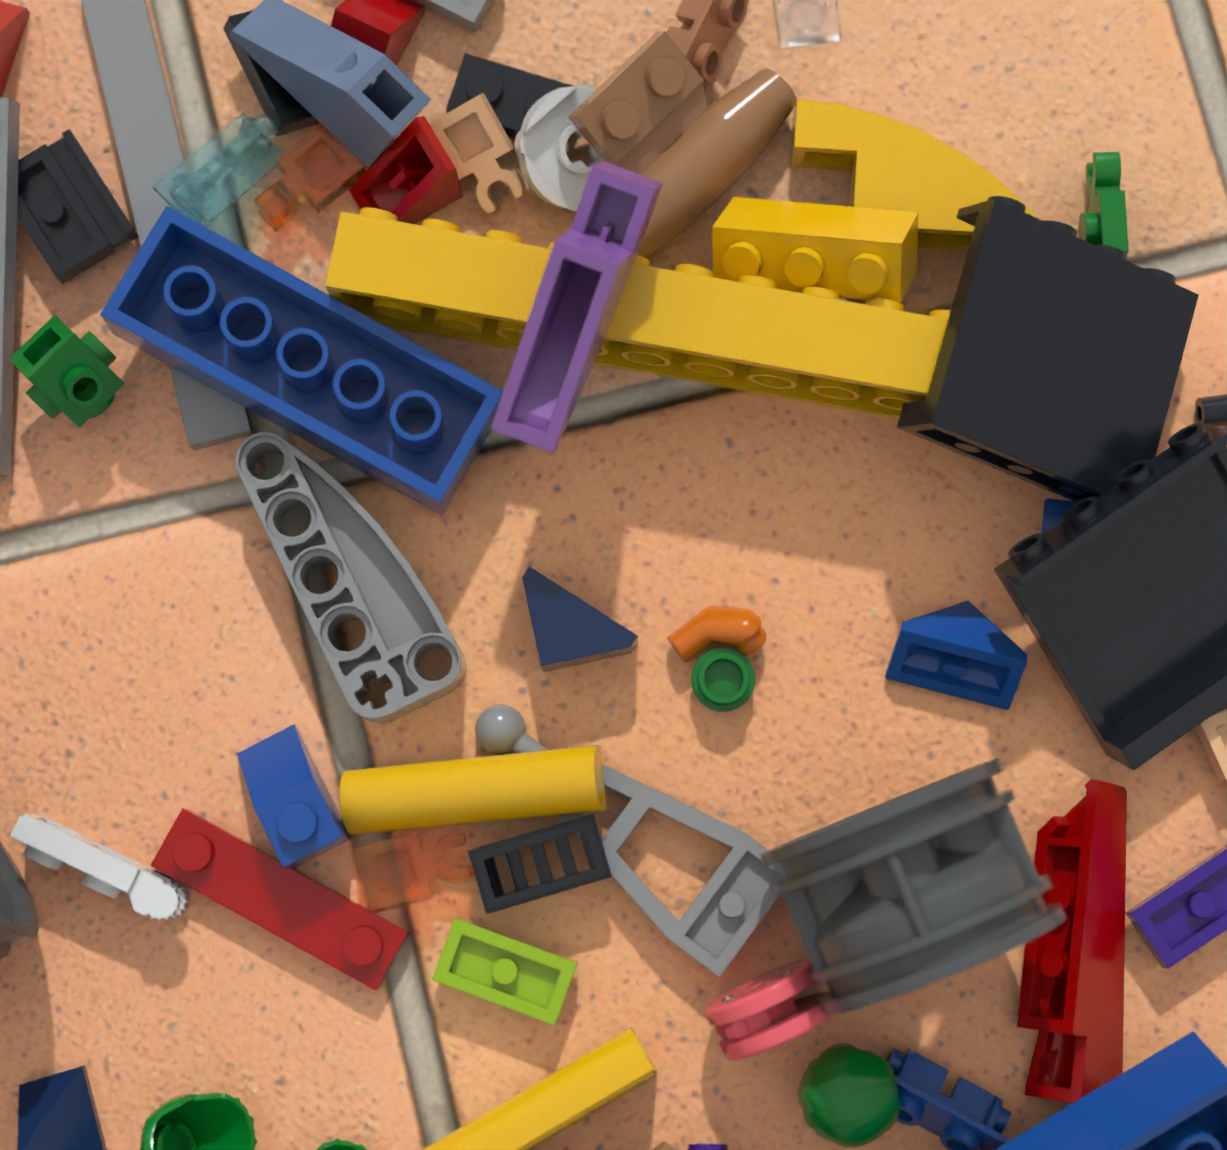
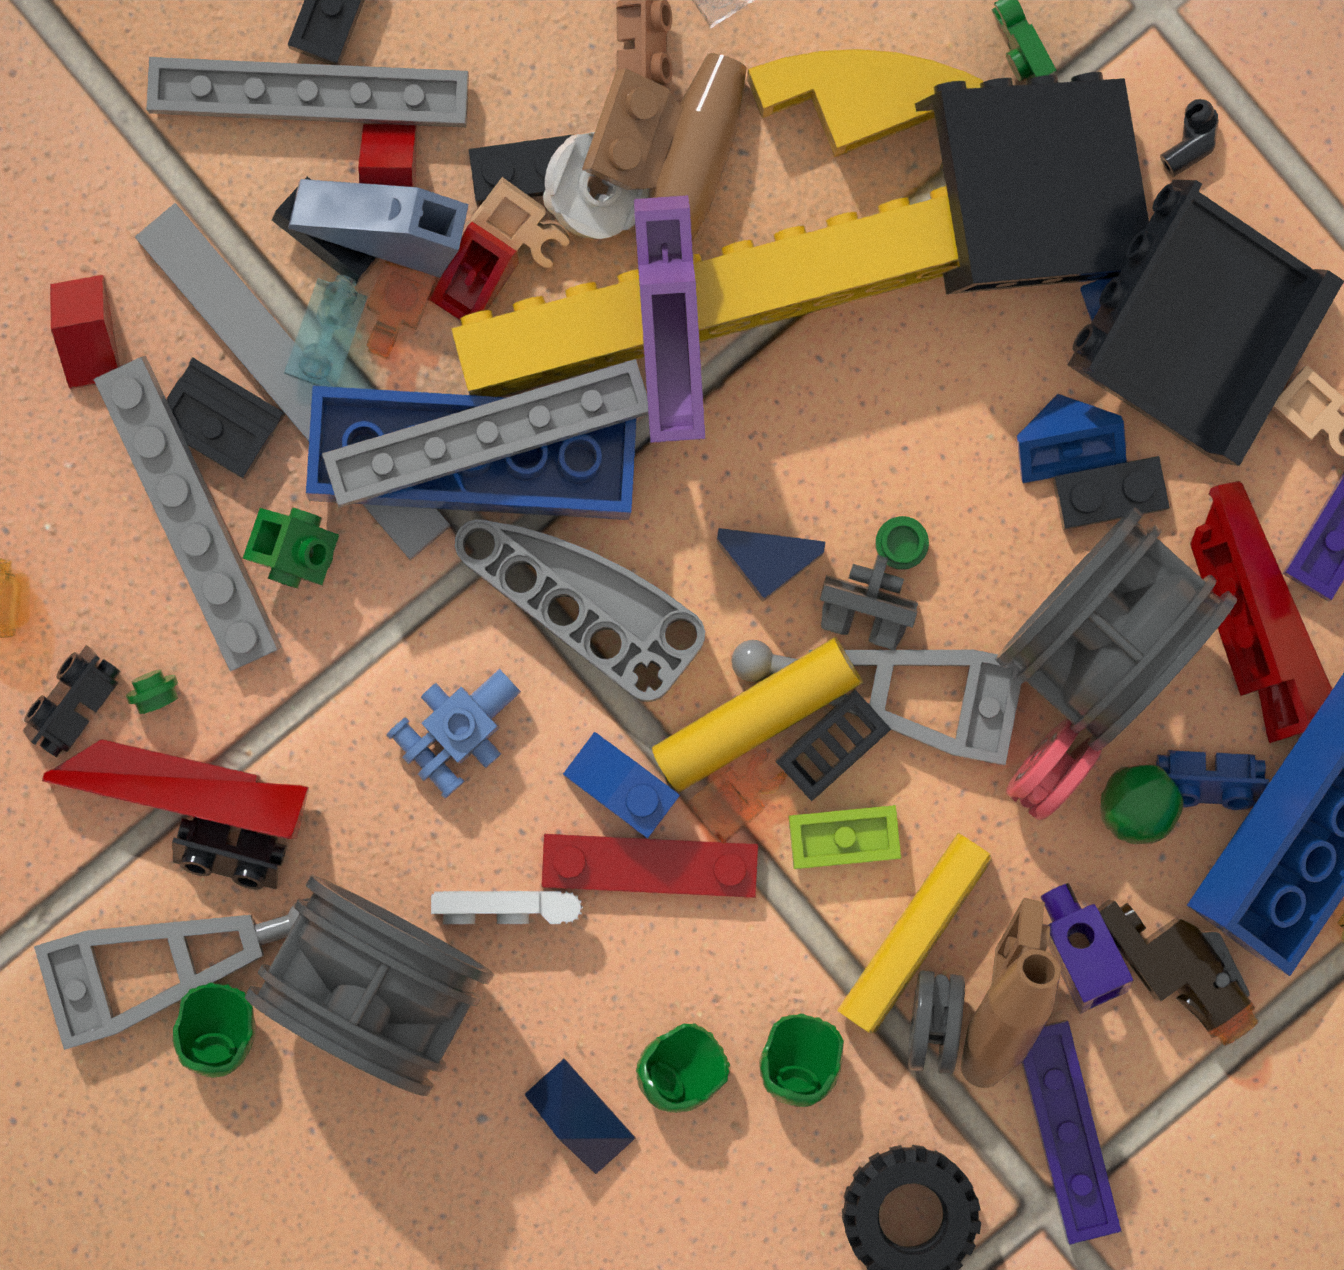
camera: 30 degrees left, 5 degrees up
(148, 650) = (460, 725): none -> medium blue piece
(317, 339) = (486, 433): none -> light grey plate
(632, 709) = (890, 611): none -> dark grey hips
(721, 625) = (881, 502): orange arm -> none
(818, 245) = (819, 181): yellow brick -> none
(976, 732) = (1110, 492): none -> black plate

